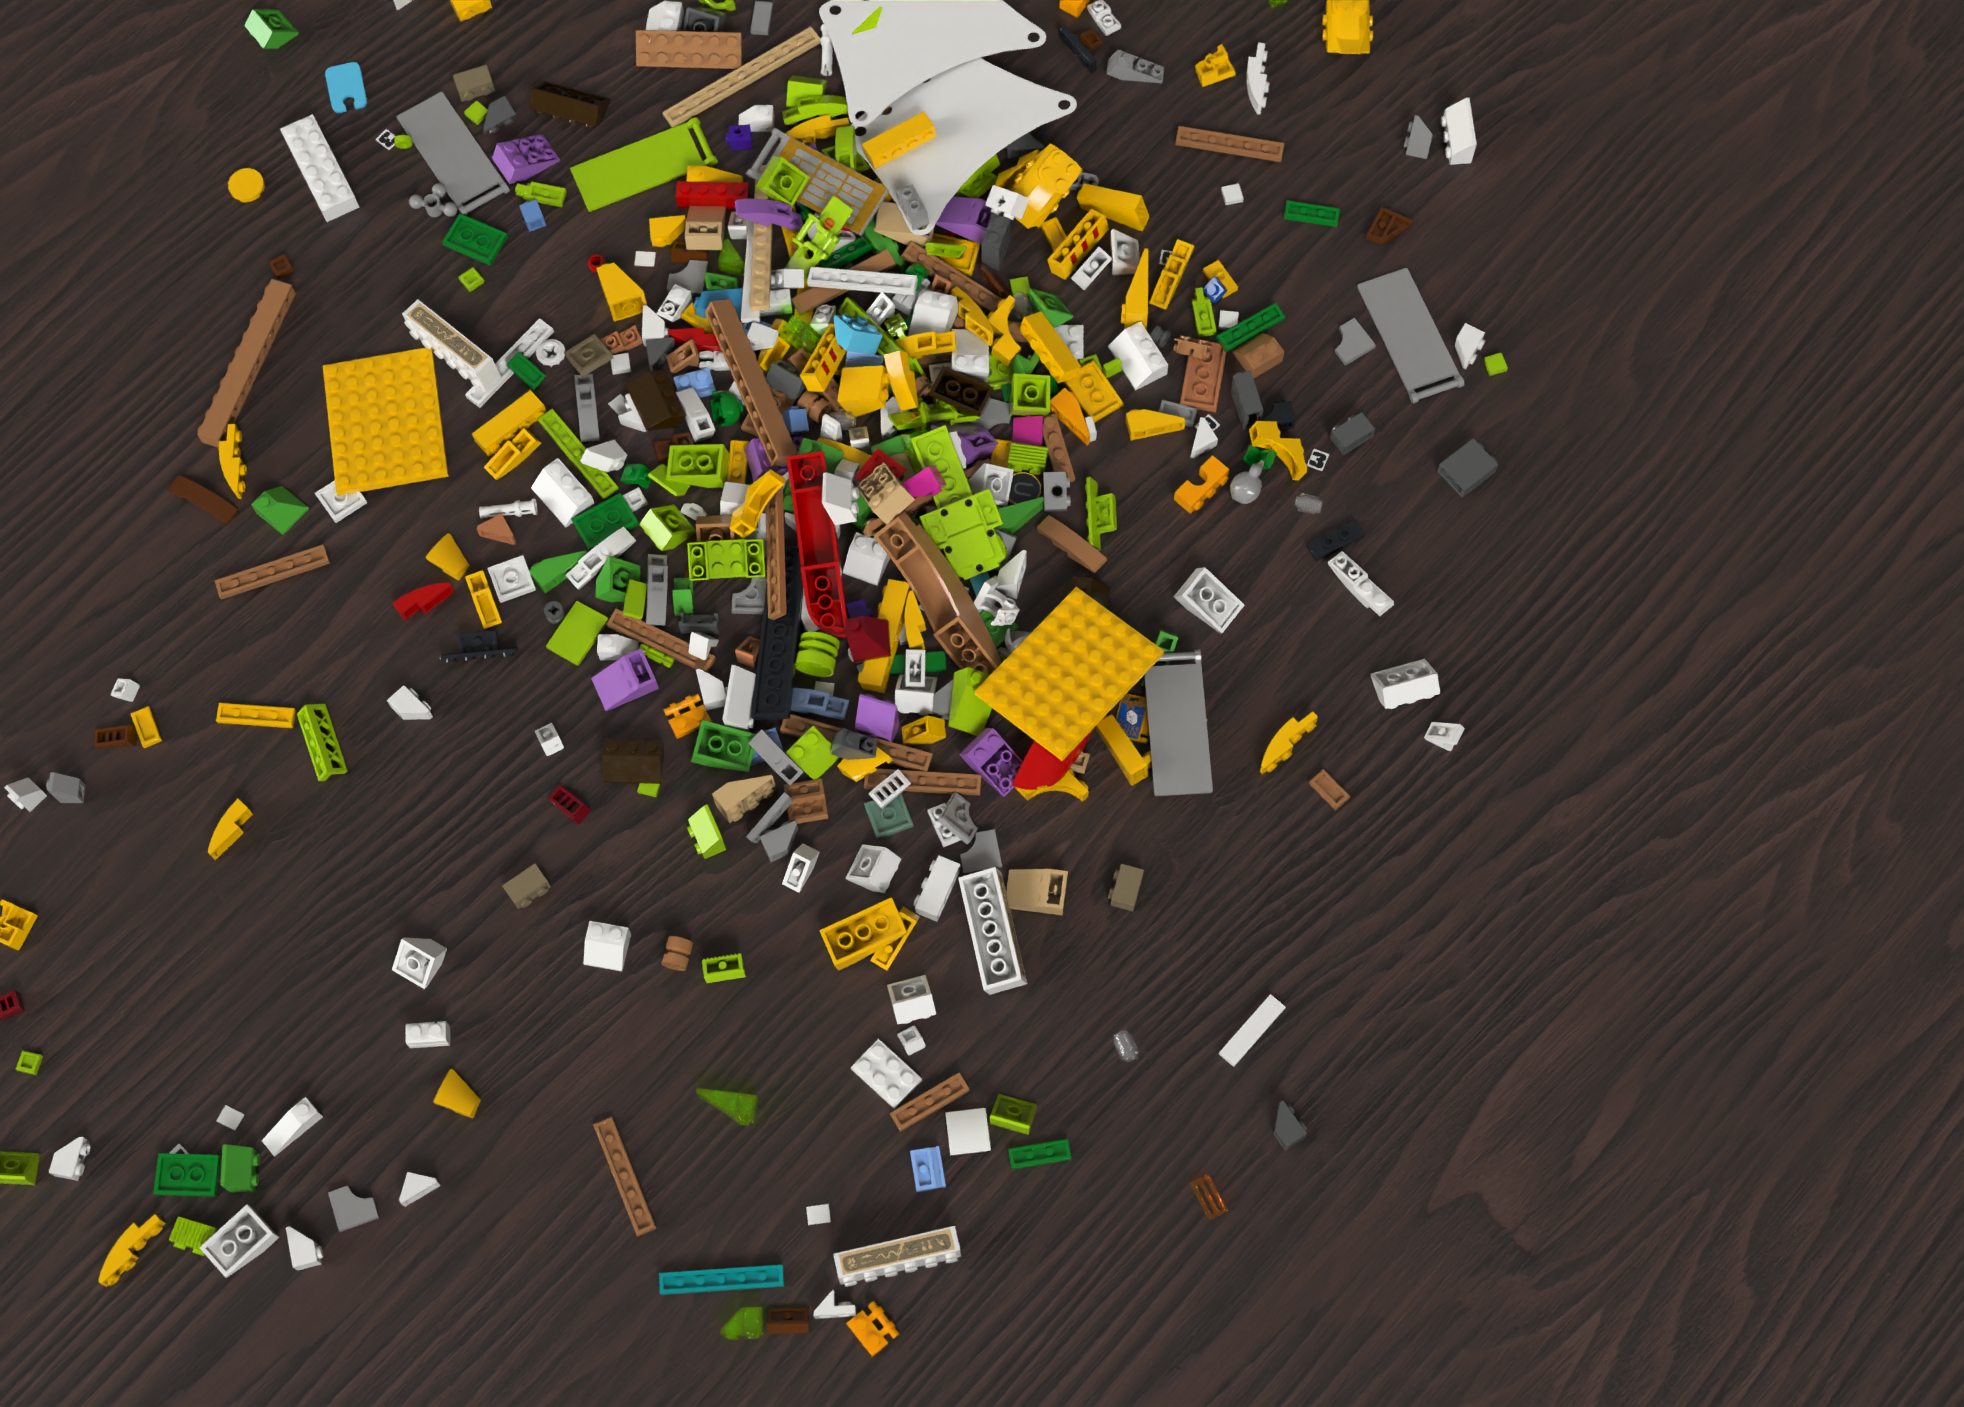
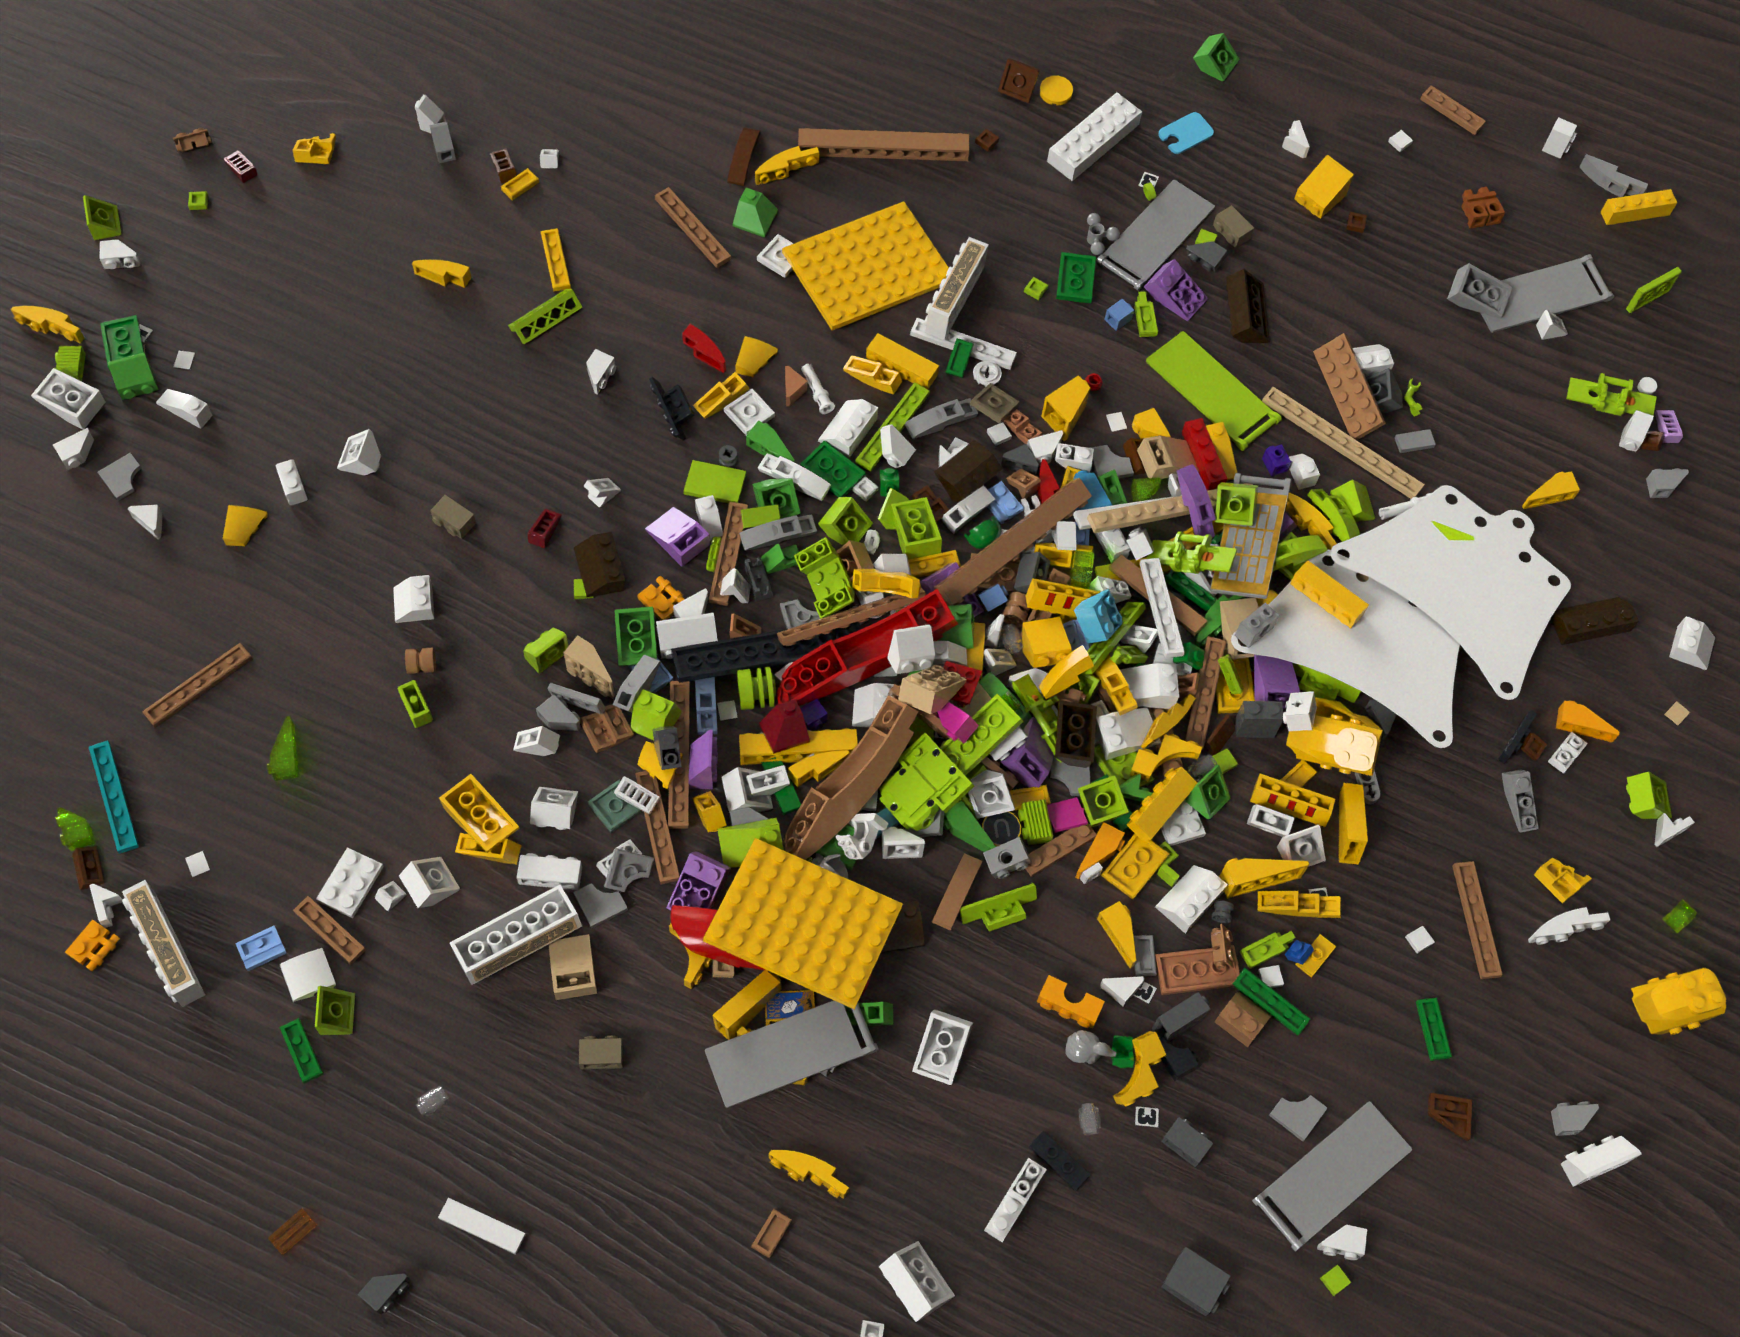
camera: 65 degrees right, 5 degrees down
(225, 212) = (1018, 80): none -> reddish brown tile

